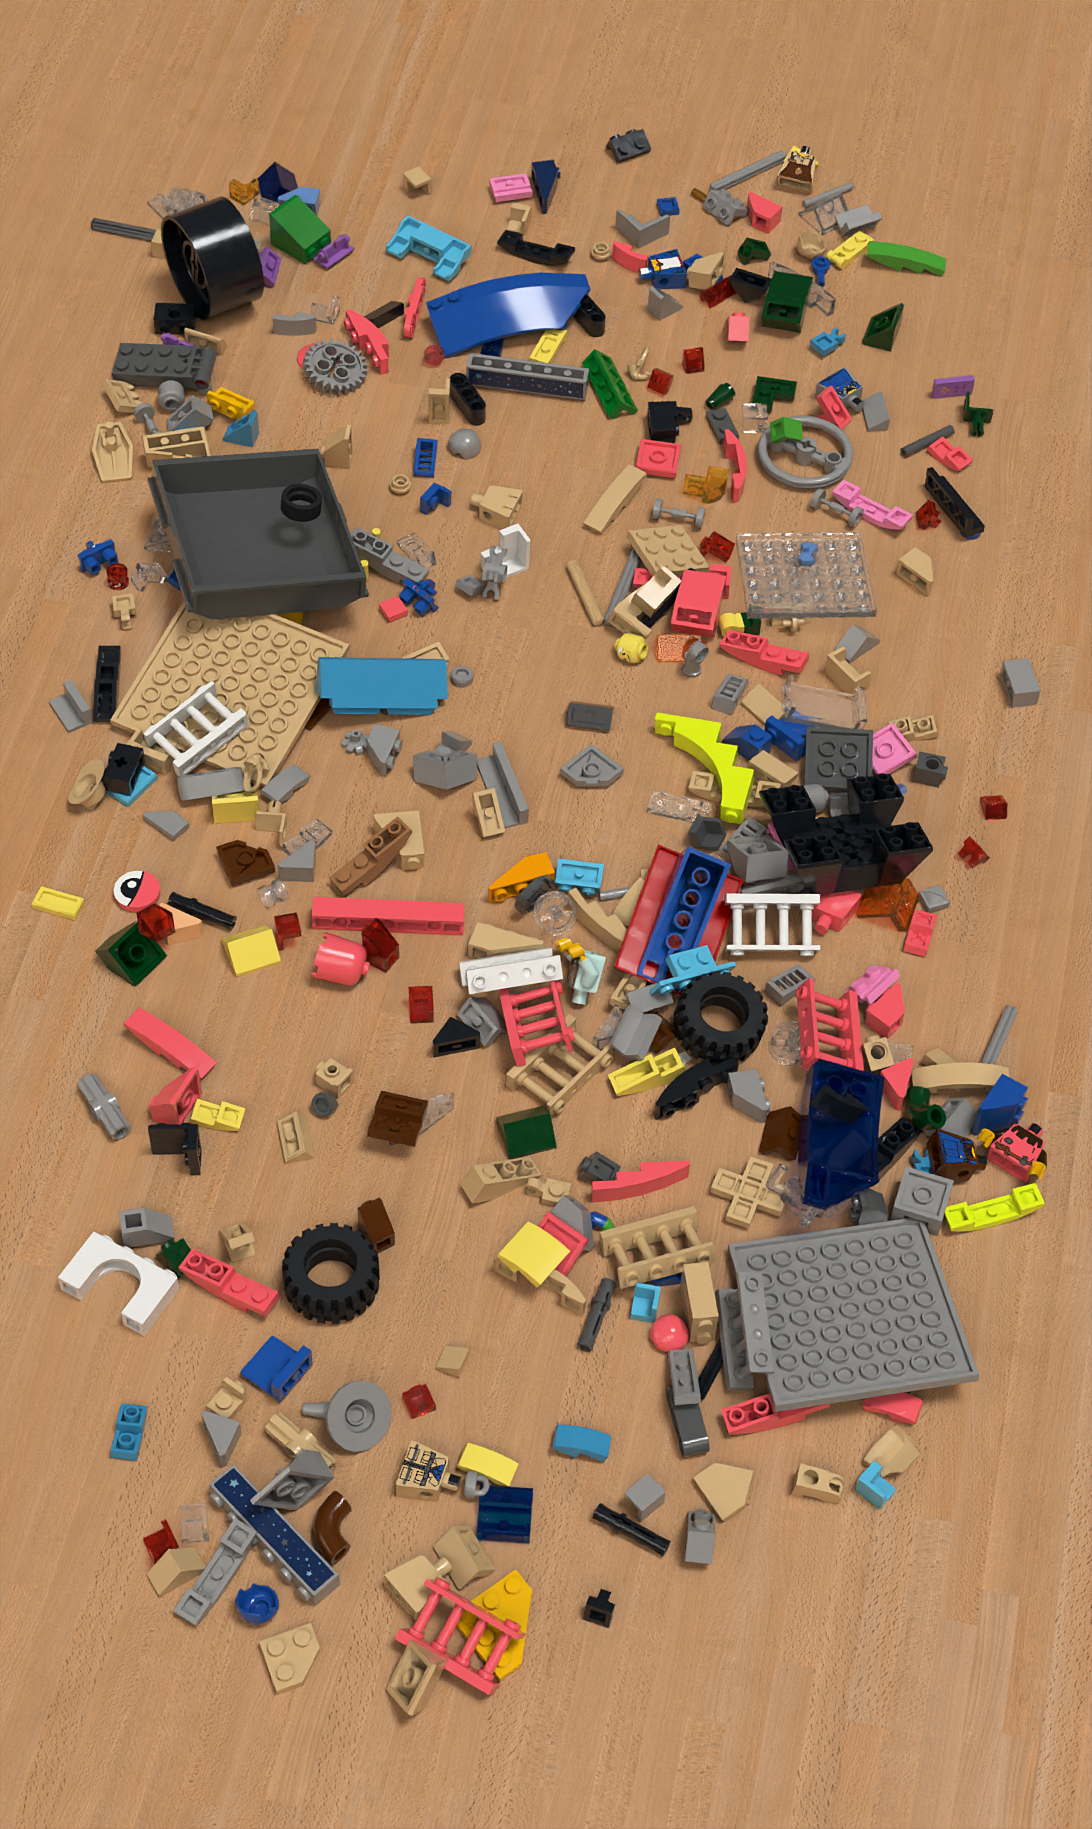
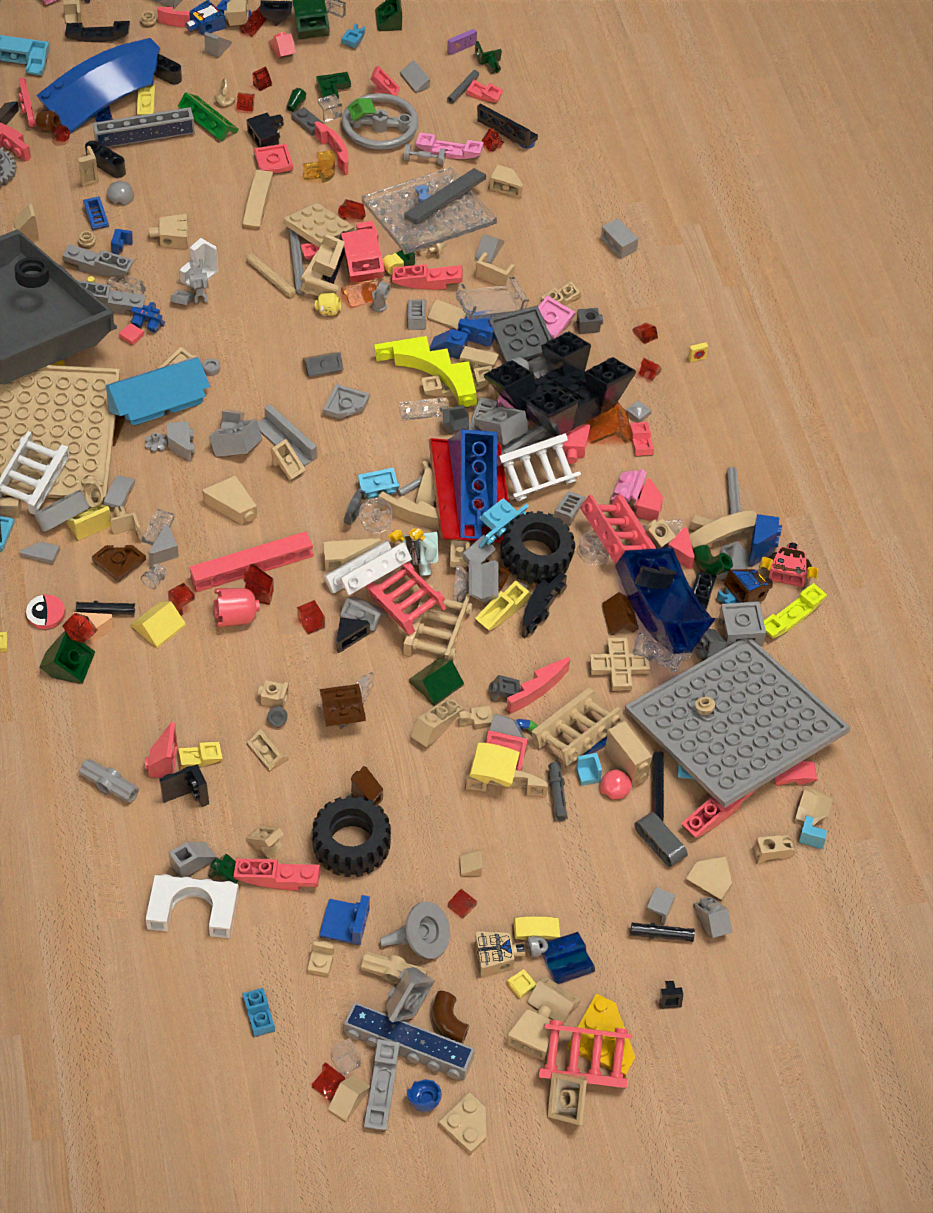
camera: 25 degrees left, 0 degrees up
(168, 1042) = (134, 714): coral slope -> none
(222, 1434) = (329, 985): light grey slope -> none
(374, 858) = (219, 521): medium nougat slope -> none
(395, 515) = (97, 263): none -> light grey slope
(424, 334) = (47, 120): none -> reddish brown head
(436, 1522) = (521, 984): none -> light yellow tile
(520, 876) = (338, 498): light orange slope -> none
(576, 1440) = (593, 884): dark azure slope -> none
(678, 513) = (312, 194): light grey wheel -> none
(684, 1376) = (645, 810): light grey tile -> none
(744, 1331) = (663, 767): light grey fence -> none
(747, 1094) = (582, 595): light grey slope -> none
(817, 1285) = (705, 705): none -> tan plate
(830, 564) = (445, 196): none -> dark grey tile
(846, 387) = (386, 63): torso -> none
(1044, 852) = (698, 352): none -> light yellow tile

